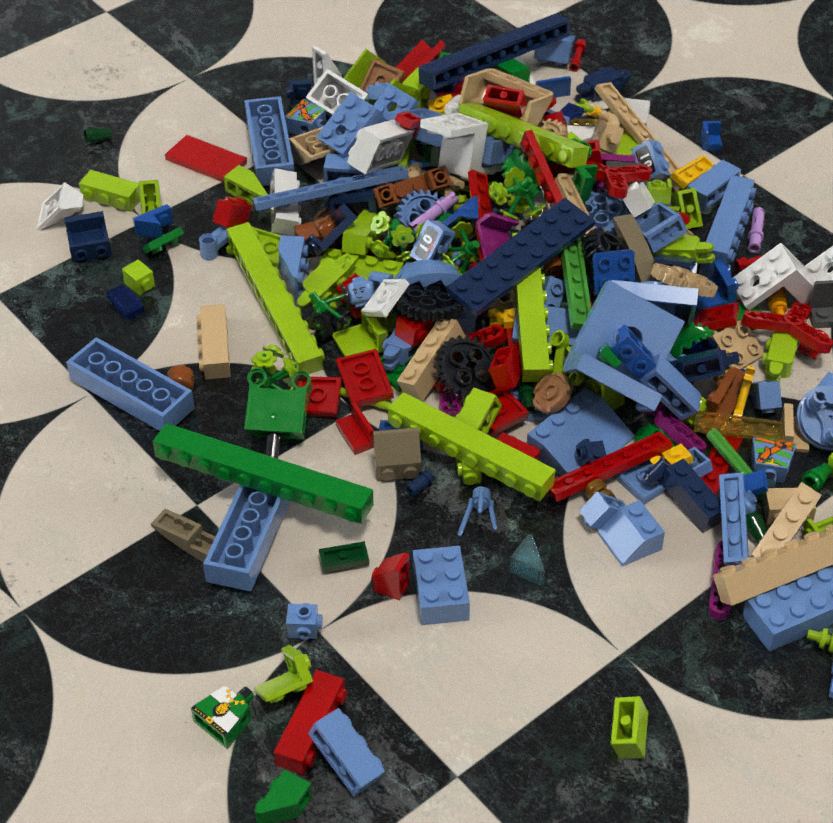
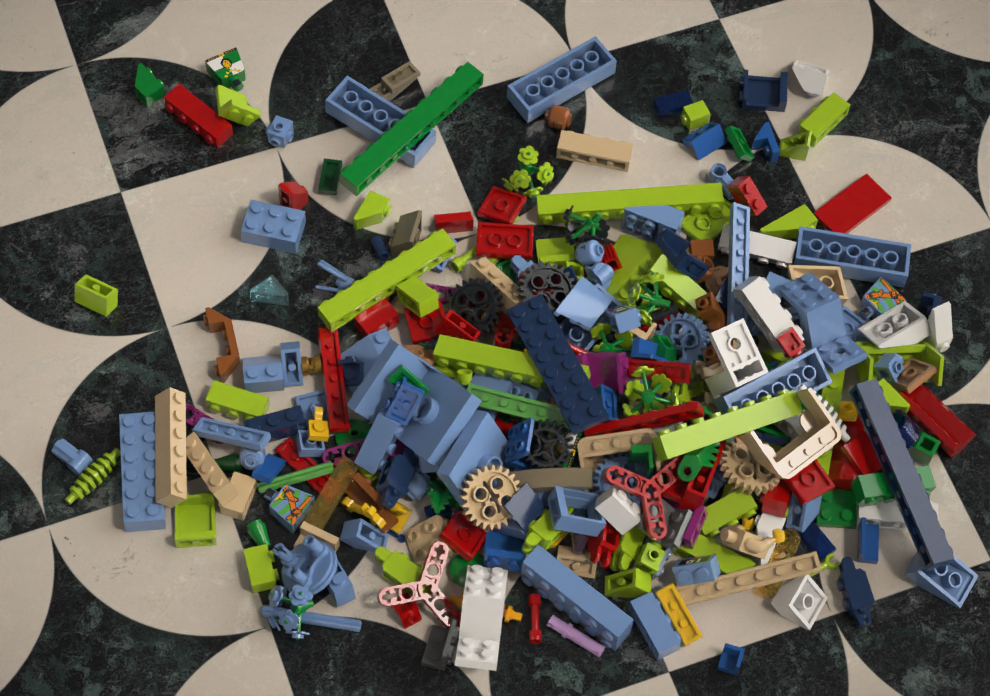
camera: 105 degrees right, 15 degrees up
(96, 134) = (914, 126): dark green cone -> none
(164, 267) = (705, 140): none -> blue panel
(276, 411) = (483, 162): green piece -> none
(326, 279) = (626, 239): lime hinge -> none
(346, 752) = (158, 122): medium blue brick -> none
(384, 506) = (372, 210): none -> lime slope
(385, 297) = (564, 259): white tile -> none
(435, 211) = (678, 348): lavender pin -> none
(505, 100) = (788, 432): red brick -> none
(575, 62) = (905, 583): red bar -> none
(643, 568) = (217, 323): none -> dark orange slope
(656, 472) = (308, 406): dark blue pin -> none
(684, 544) = (236, 402): none -> lime brick

